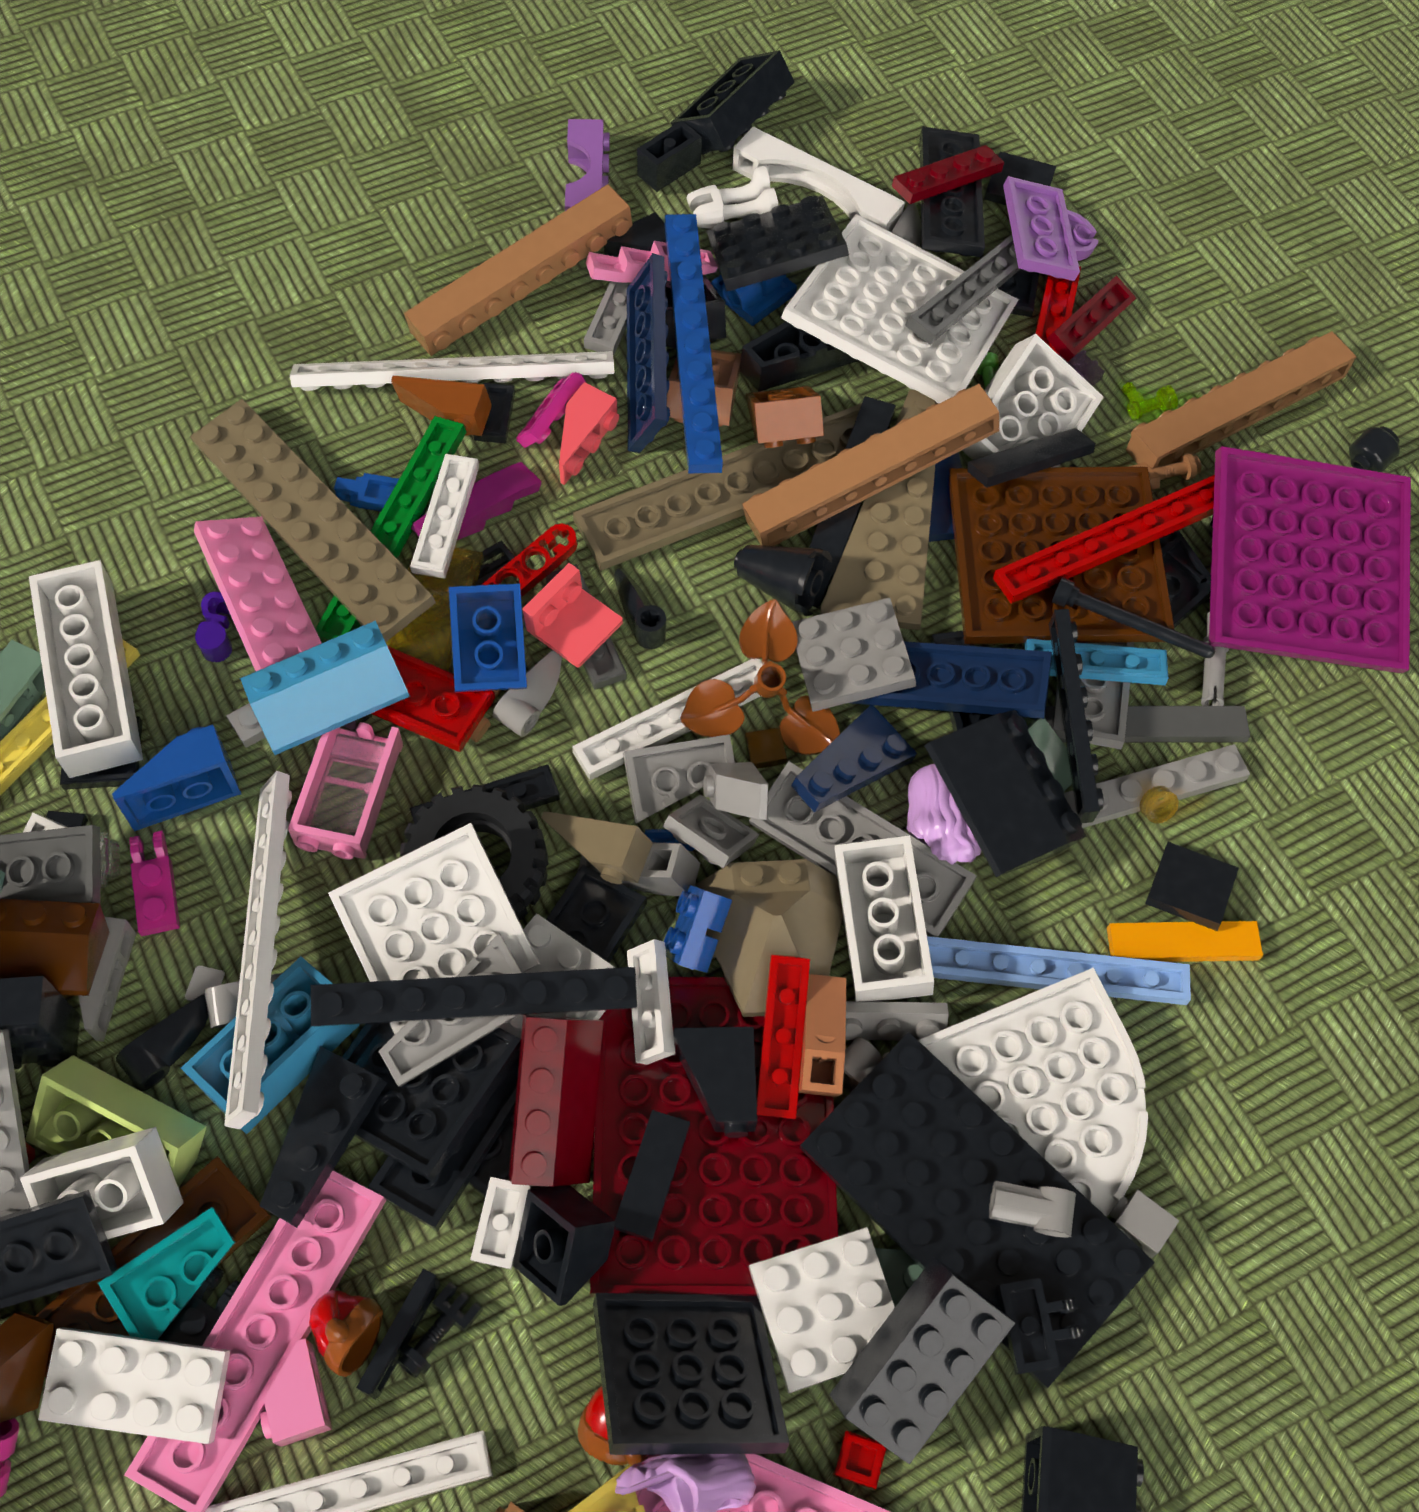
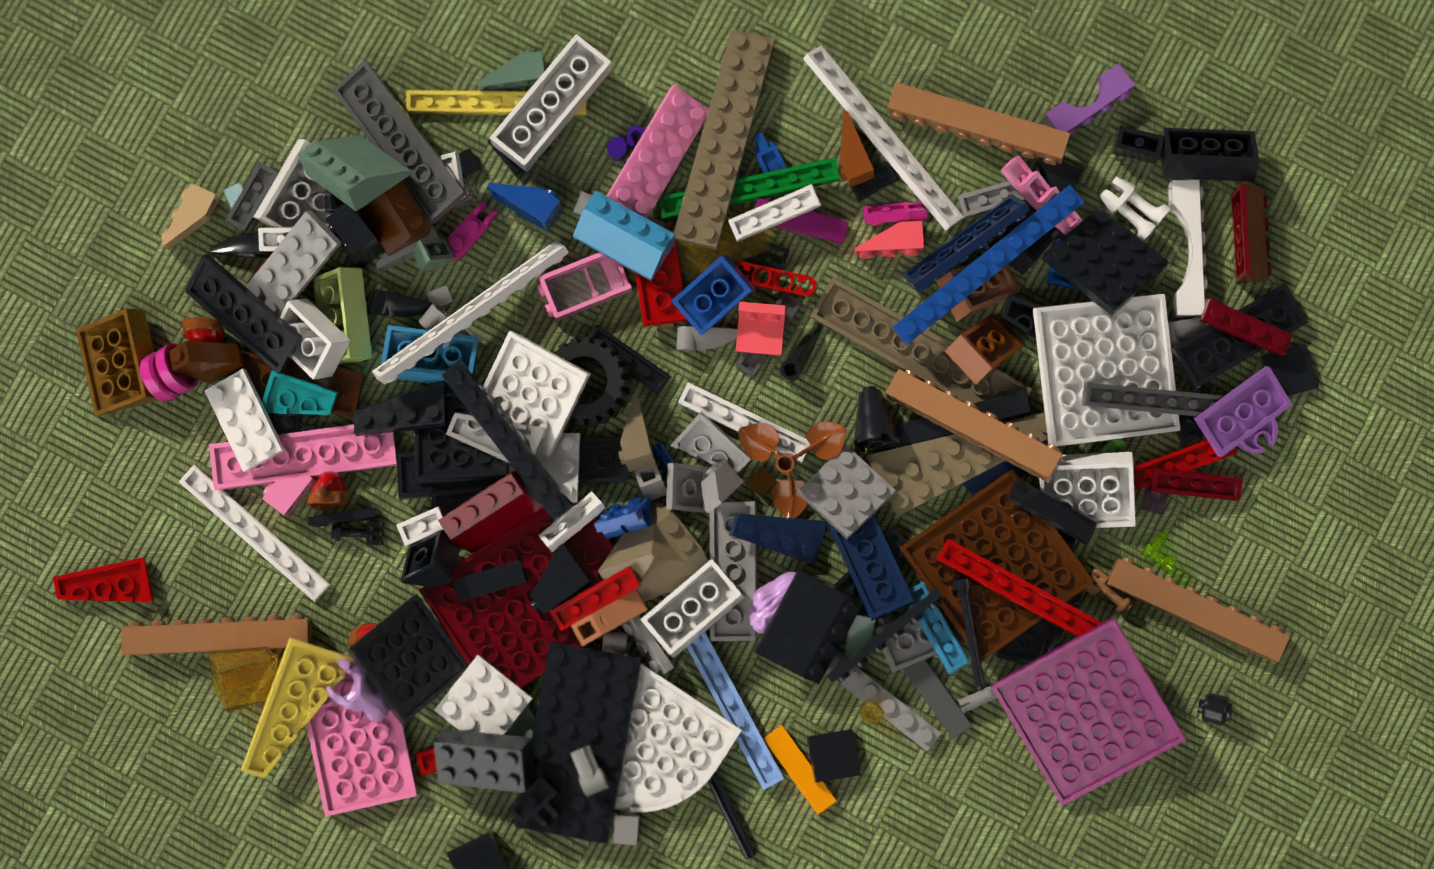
camera: 60 degrees right, 20 degrees up
(137, 946) = (432, 254): none -> sand green slope
(844, 127) = (1250, 234): none -> dark red slope
(1208, 1071) = (731, 817): none -> black axle

